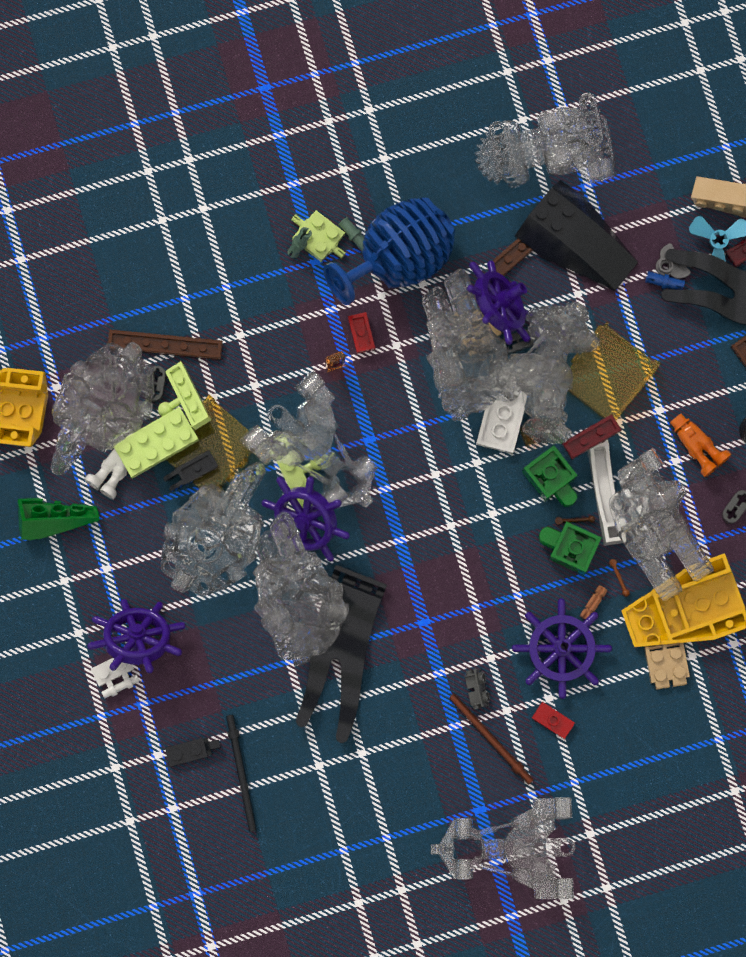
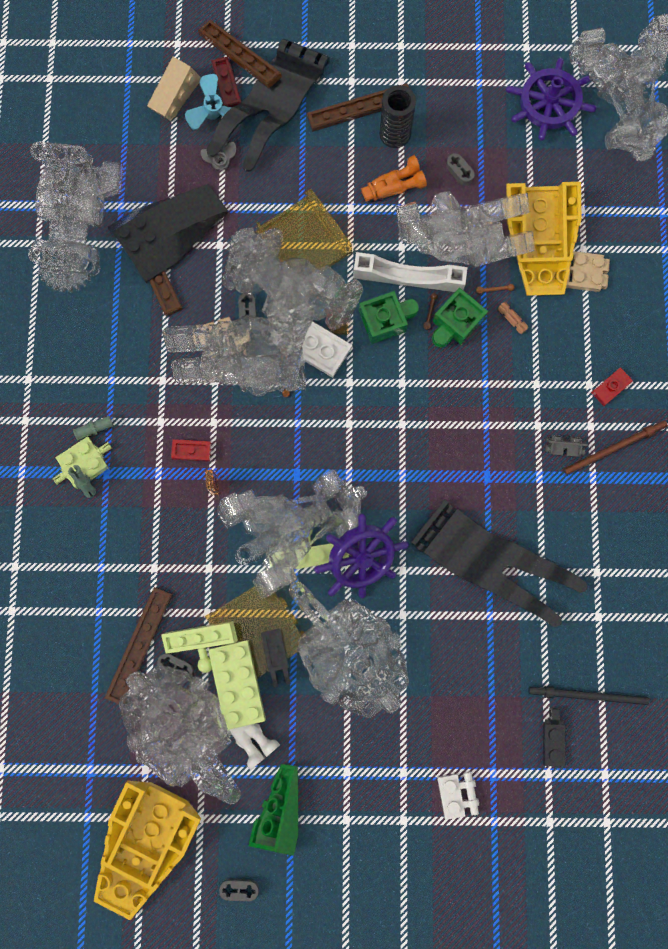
camera: 70 degrees left, 0 degrees up
(136, 636) = (431, 764): dark purple piece -> none
(299, 579) = (423, 577): clear piece -> none
(400, 248) = (120, 384): blue plant -> none
(500, 301) = (206, 307): dark purple piece -> none
(562, 648) = (549, 357): dark purple piece -> none
(592, 436) = (362, 265): dark red tile -> none
(664, 281) = (234, 165): blue pin -> none

